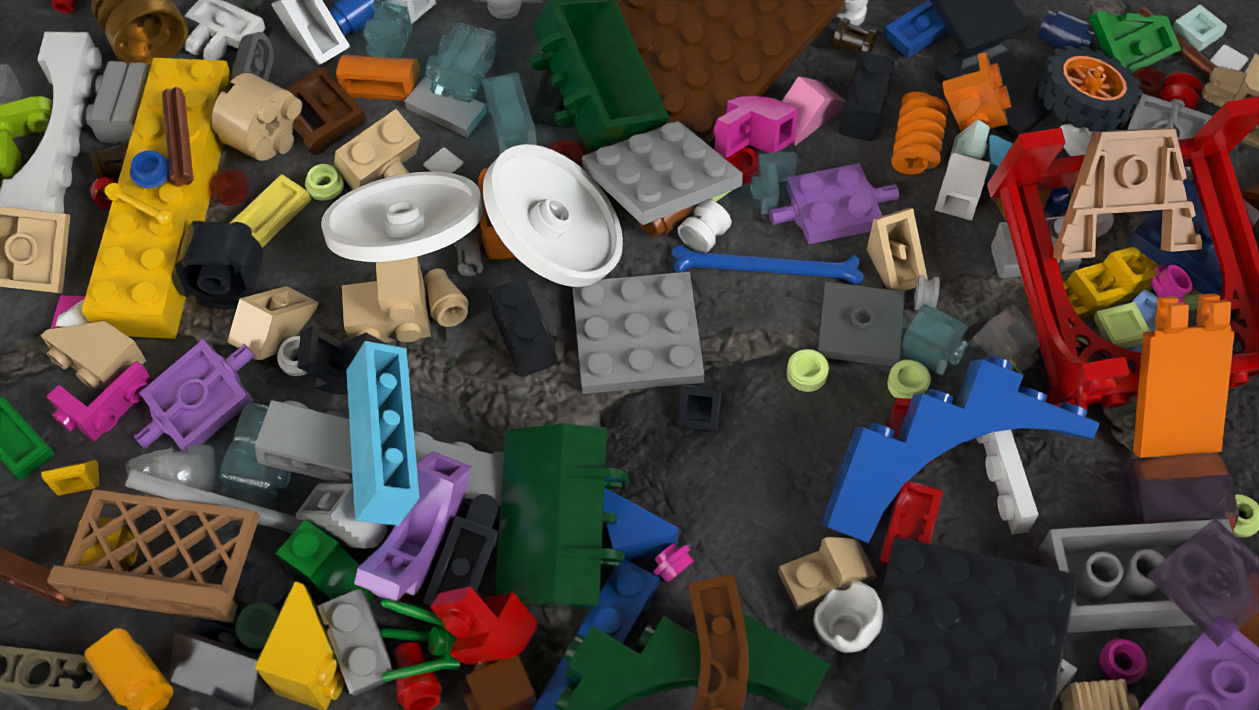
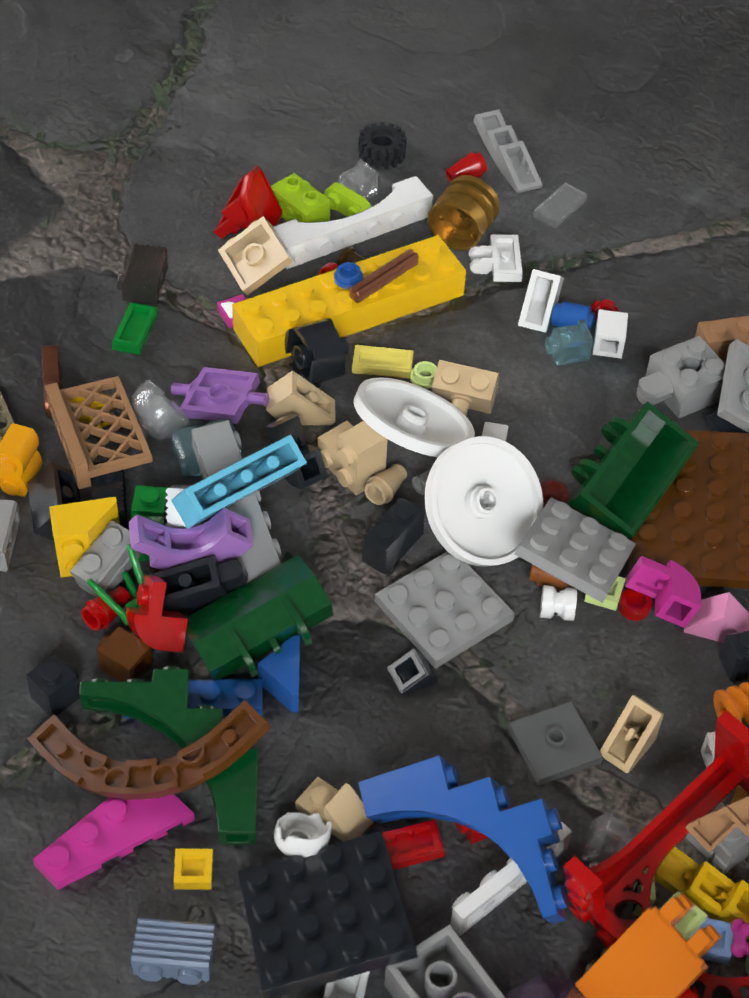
camera: 55 degrees right, 10 degrees down
(73, 477) = (128, 369): yellow slope -> none
(93, 350) = (215, 333): tan slope -> none
(105, 409) = (183, 357): dark pink bracket -> none
(115, 192) = (321, 270): yellow hinge -> none
(117, 101) = (397, 236): light grey brick -> none
(182, 492) = (147, 429): light grey bar -> none
(231, 194) = (383, 331): clear red plate -> none
(254, 56) = (480, 290): dark grey plate -> none
(256, 117) = (438, 310): tan brick -> none
(256, 624) = (81, 493): clear green plate -> none
(330, 105) = (486, 344): reddish brown plate -> none
(378, 76) = (531, 358): orange brick -> none
(448, 112) = (539, 409): light grey tile -> none
(461, 62) = (577, 394): clear light blue brick -> none
(508, 111) = (555, 444): clear light blue brick -> none
(672, 562) = (277, 710): dark pink plate -> none
(770, 170) = (633, 620): clear light blue bracket -> none
(807, 370) = (490, 726): yellowish green tile -> none
(833, 203) = (648, 674): medium lavender plate -> none
(845, 270) = (594, 712): blue piece -> none
(908, 378) = (528, 791): yellowish green tile -> none
(926, 292) = (611, 771): light grey bush -> none
(934, 339) = (573, 792): clear light blue brick -> none

